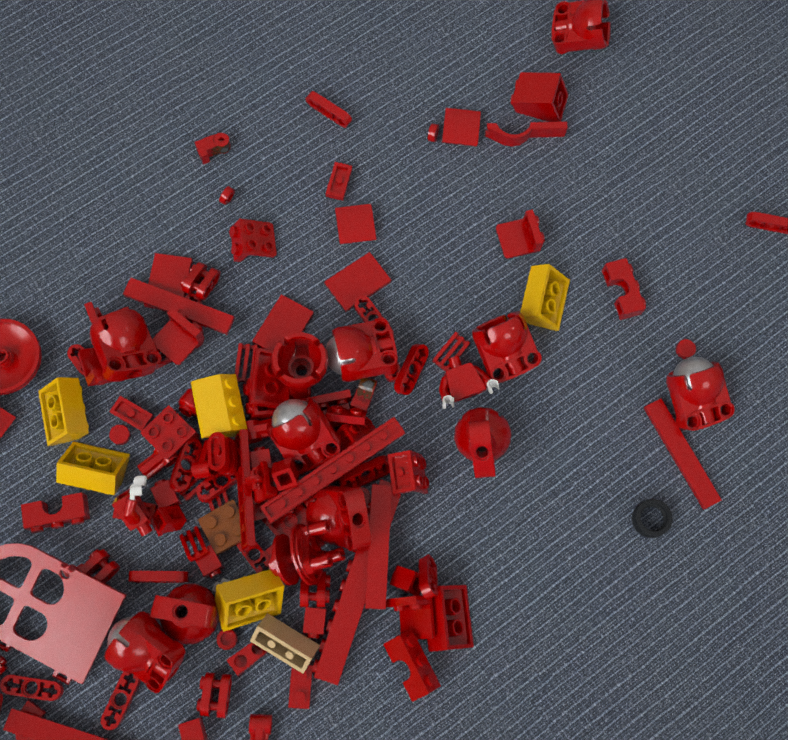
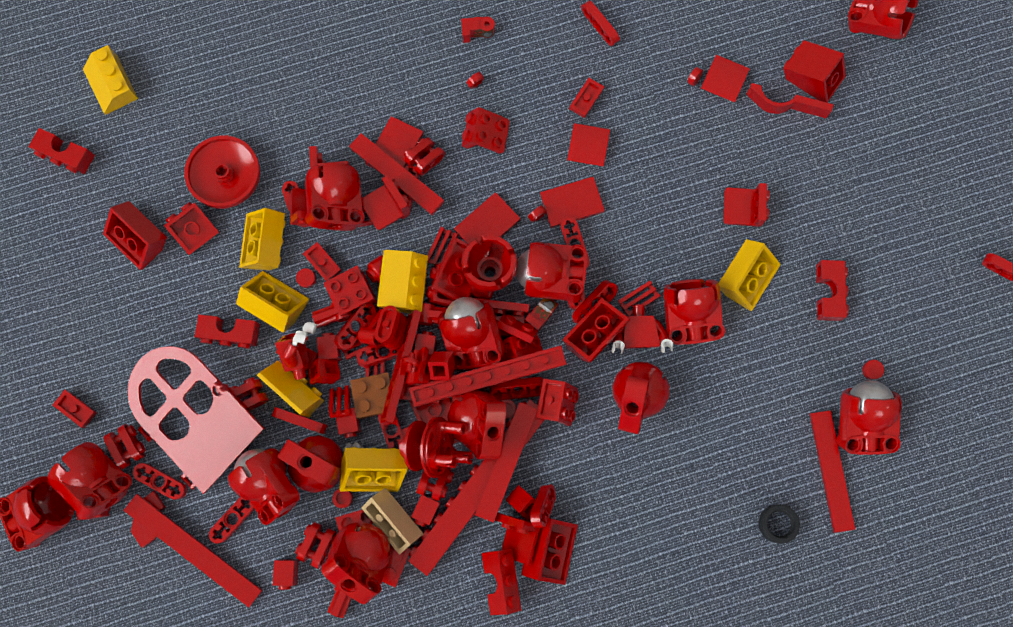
camera: 30 degrees right, 5 degrees up
(141, 547) = (292, 391): none -> yellow slope
(265, 693) = (358, 561): none -> red piece
(328, 302) = (536, 214): none -> red tile
(421, 394) = (595, 331): none -> red slope

